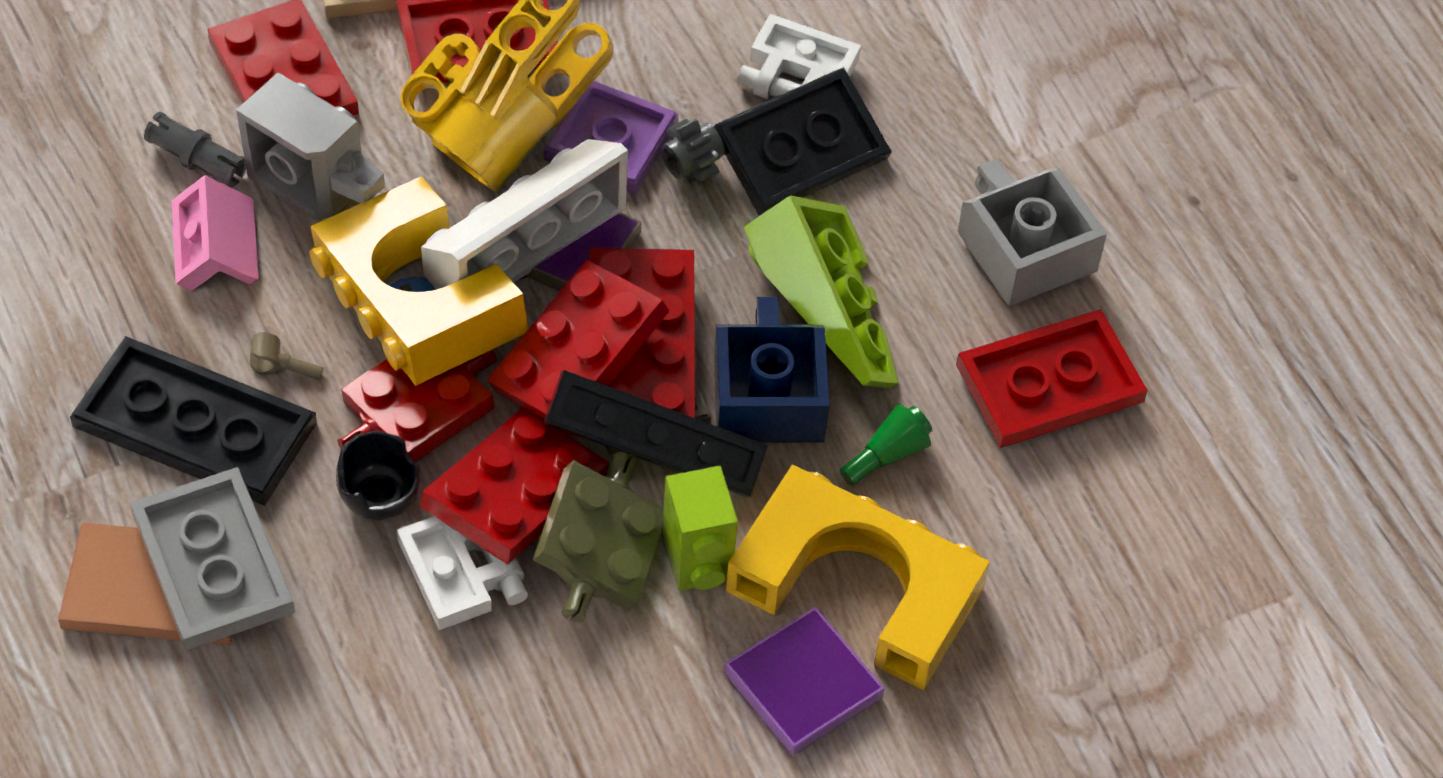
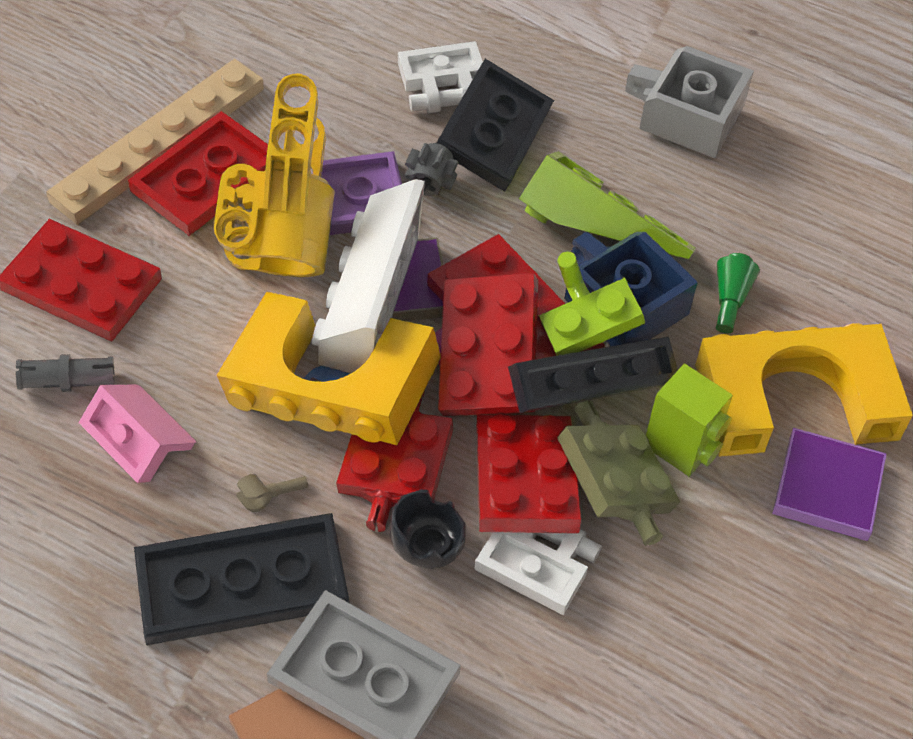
camera: 35 degrees left, 0 degrees up
(305, 149) = (165, 321): light grey hinge -> none
(692, 374) = (589, 316): none -> lime plate
(1051, 378) = (786, 187): red plate -> none

